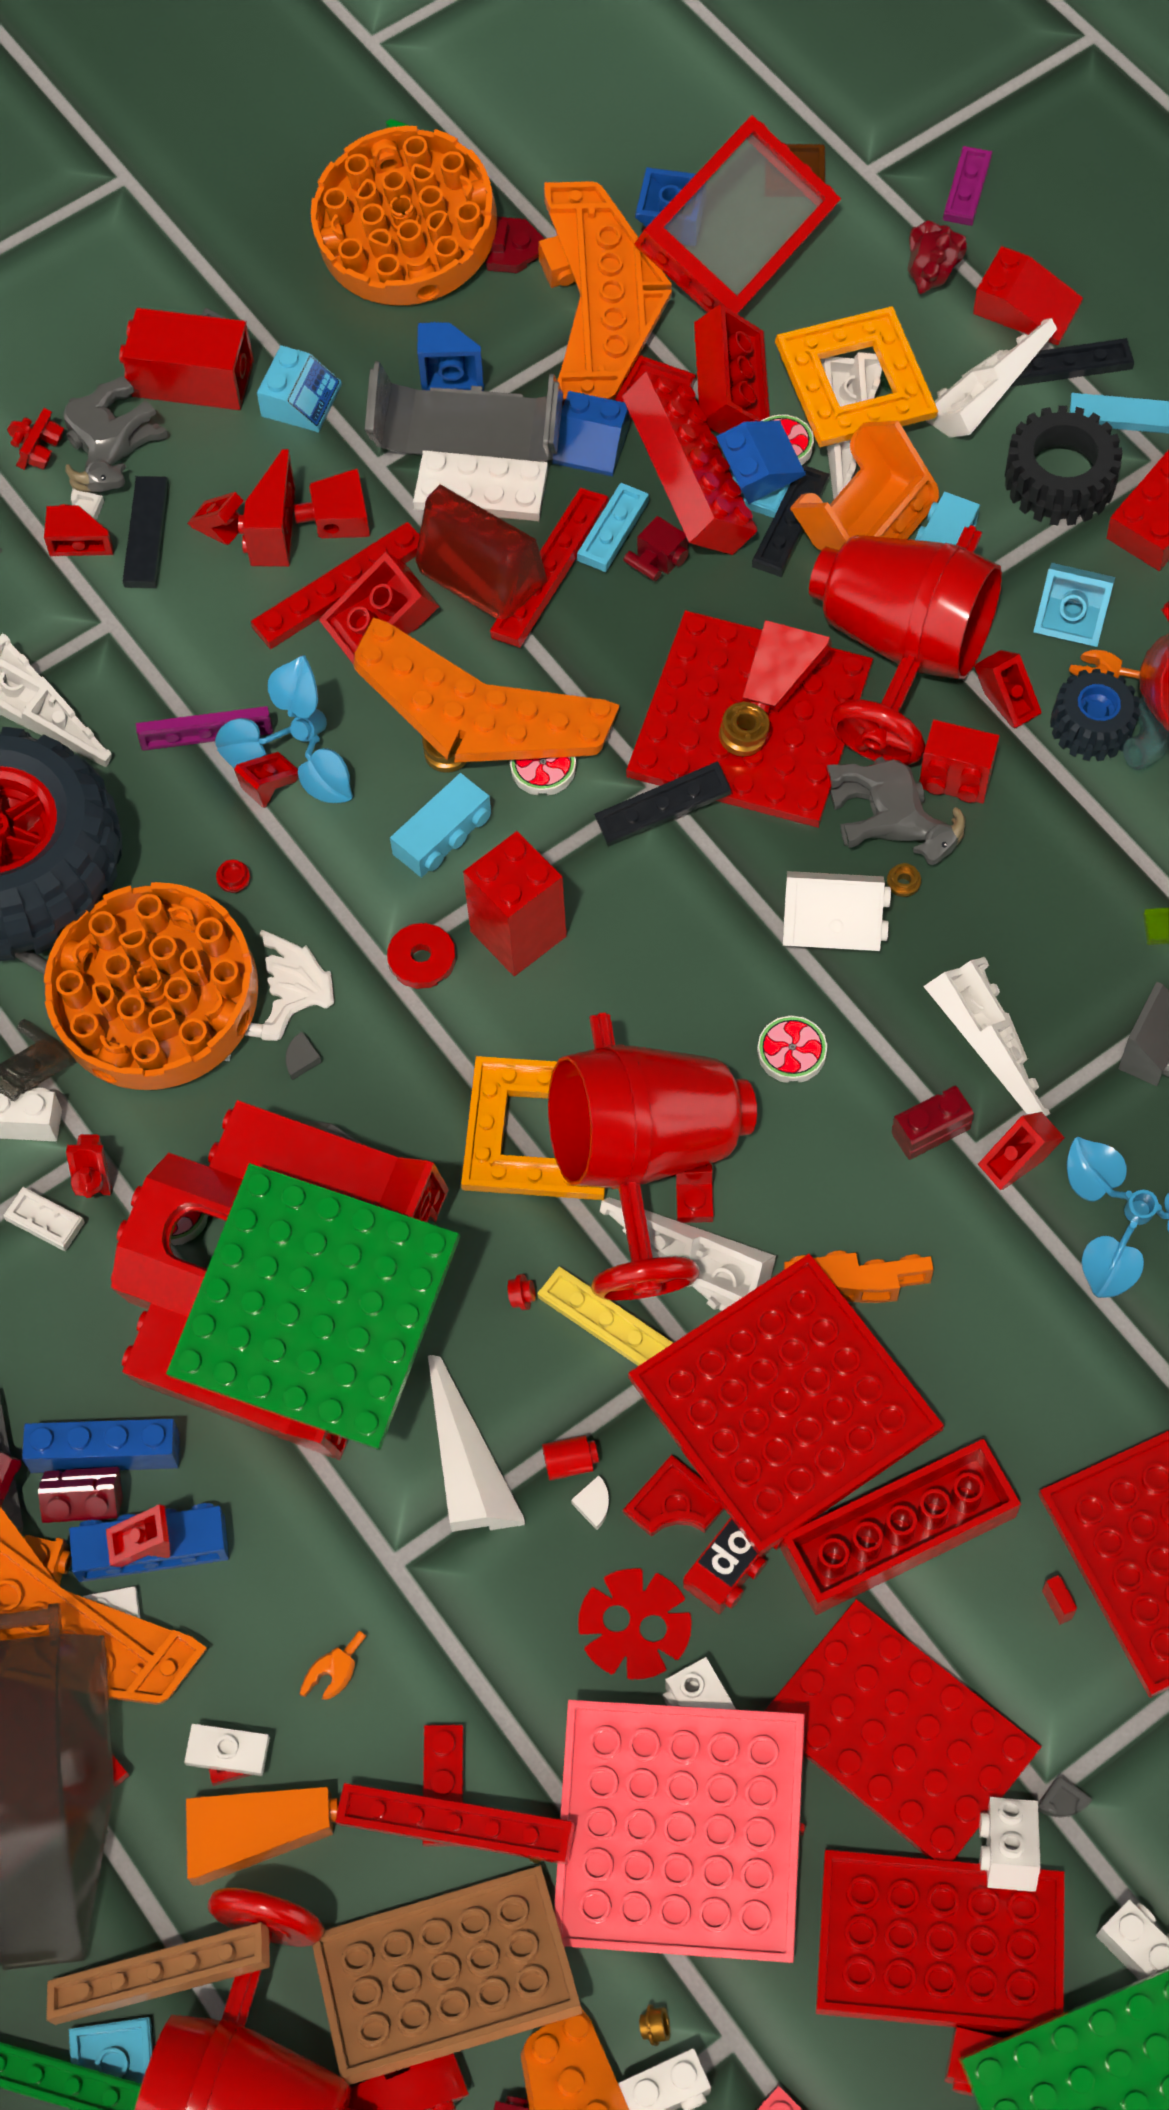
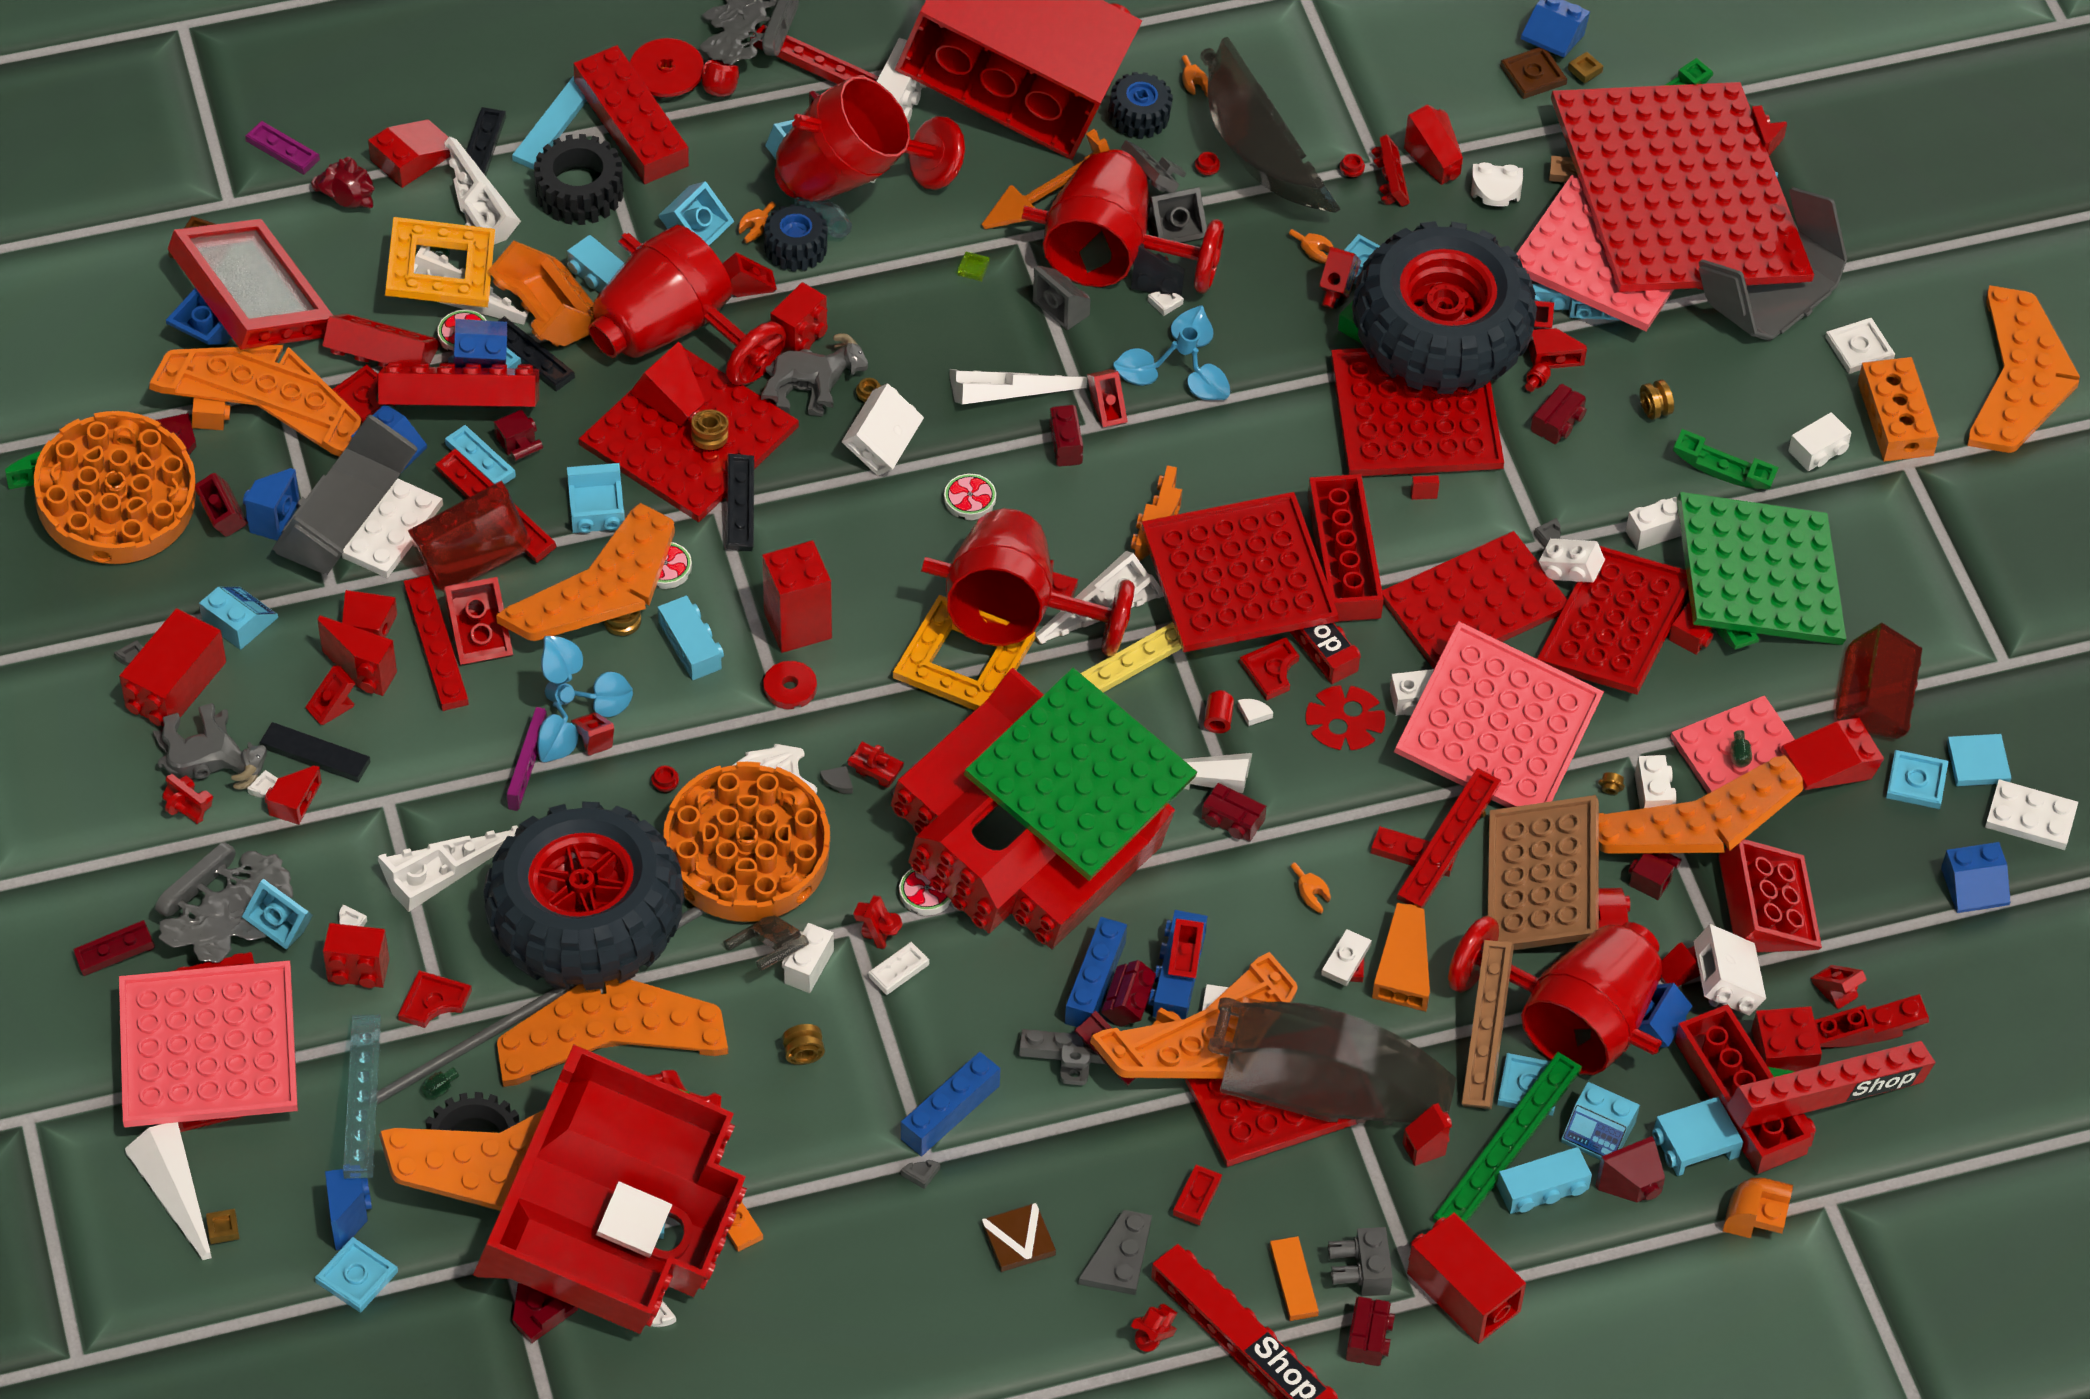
camera: 75 degrees left, 10 degrees down
(327, 1086) = (875, 763): none -> red hips
(412, 1530) = (1233, 812): none -> dark red brick
(436, 304) = (220, 504): none -> dark red brick
(605, 660) = (595, 497): none -> medium azure panel

